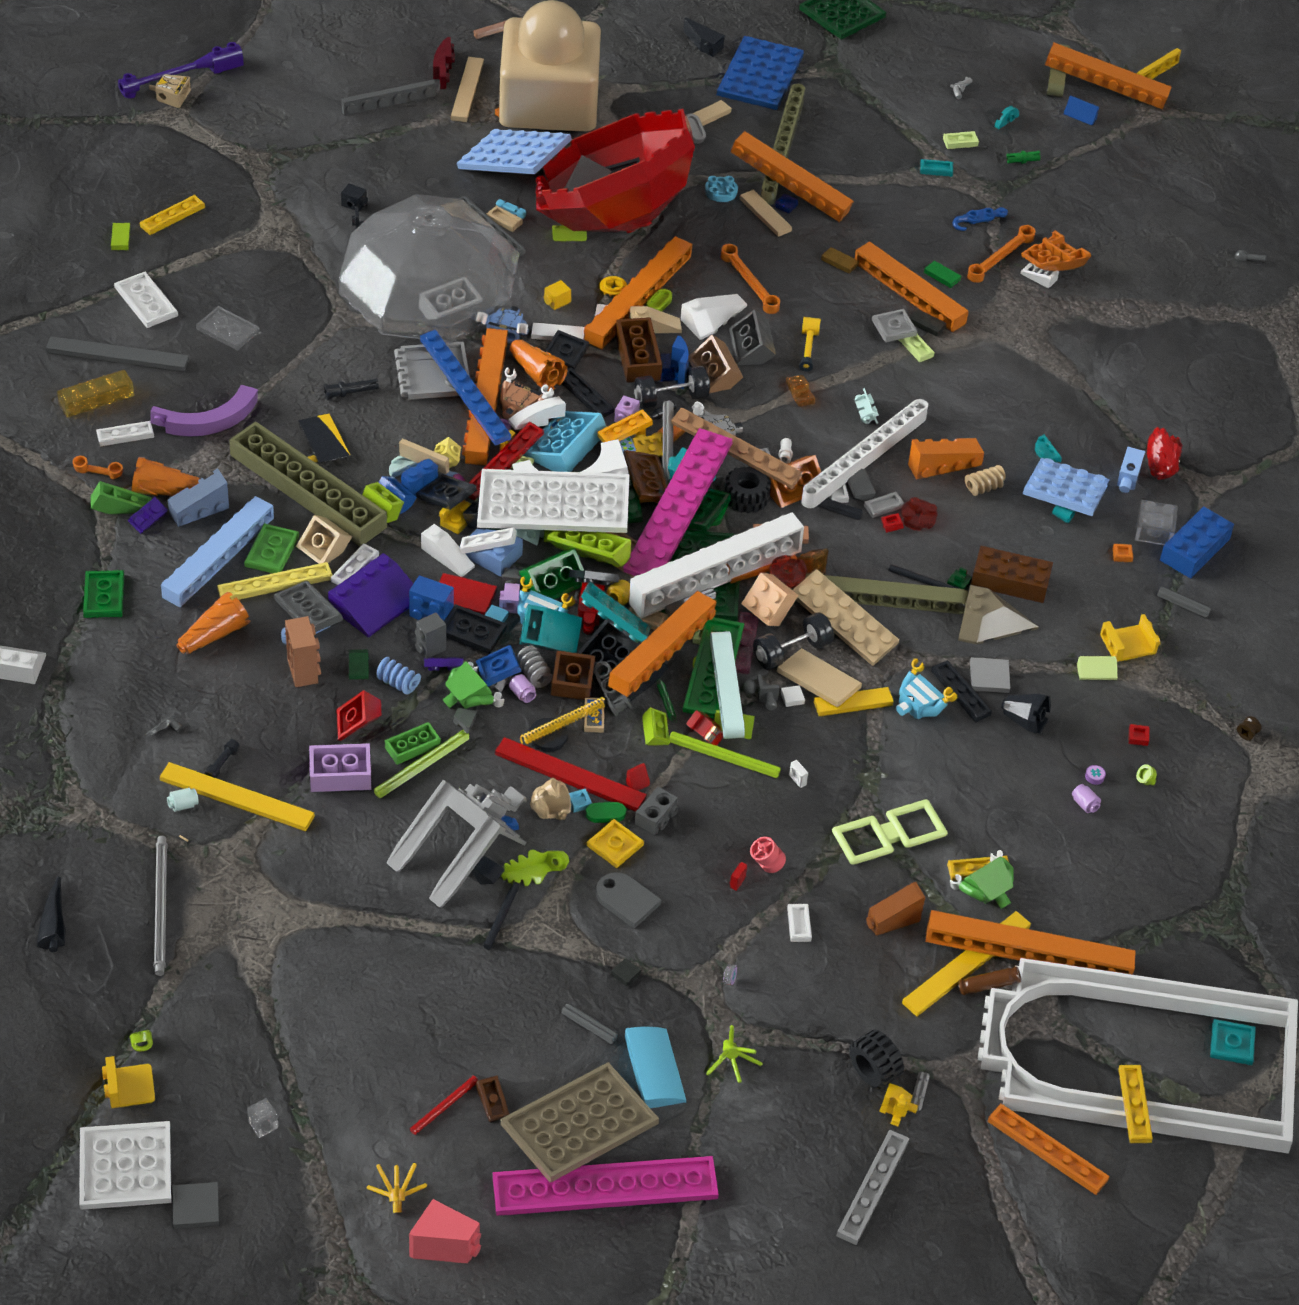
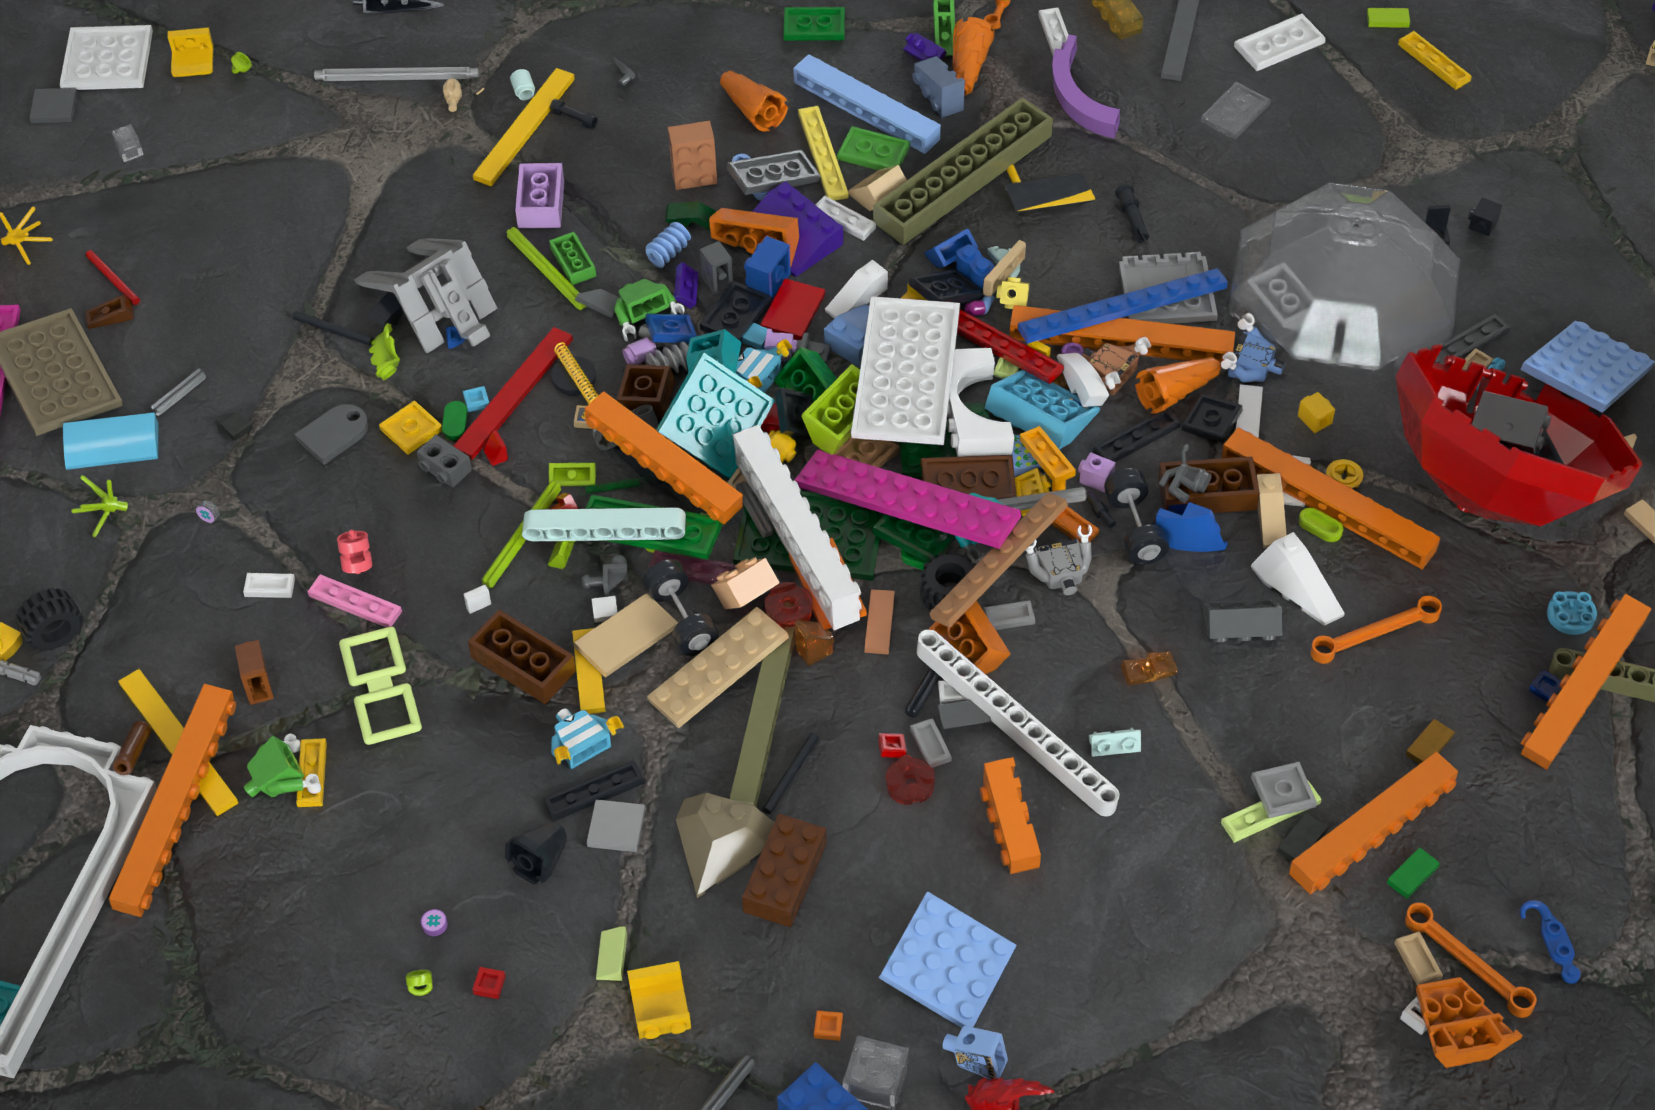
camera: 100 degrees right, 5 degrees up
(193, 853) = (452, 93): none -> tan piece
(357, 714) = (615, 215): red slope -> none
(384, 499) = (931, 231): lime brick -> none
(385, 612) = (750, 228): none -> orange wedge
(488, 540) = (855, 316): white tile -> none
(551, 800) = (467, 365): tan helmet -> none
(644, 350) = (1191, 477): none -> dark grey piece
(718, 362) = (1188, 573): medium nougat slope -> none
(738, 876) = (336, 526): red tile -> none
(765, 213) = (1522, 662): tan tile -> none
(785, 453) = (1028, 638): white pin -> none
(807, 861) = (354, 601): none -> bright pink tile
(810, 327) = (1274, 685): yellow piece -> none
(854, 735) = (522, 656): none -> reddish brown brick
(960, 579) = (785, 807): dark green tile -> none
(985, 480) = (964, 862): tan piece -> none
(1005, 276) = (1418, 958): none -> tan tile
(1045, 449) = (1038, 957): teal tile -> none
(1086, 798) = (391, 901): lavender brick -> none

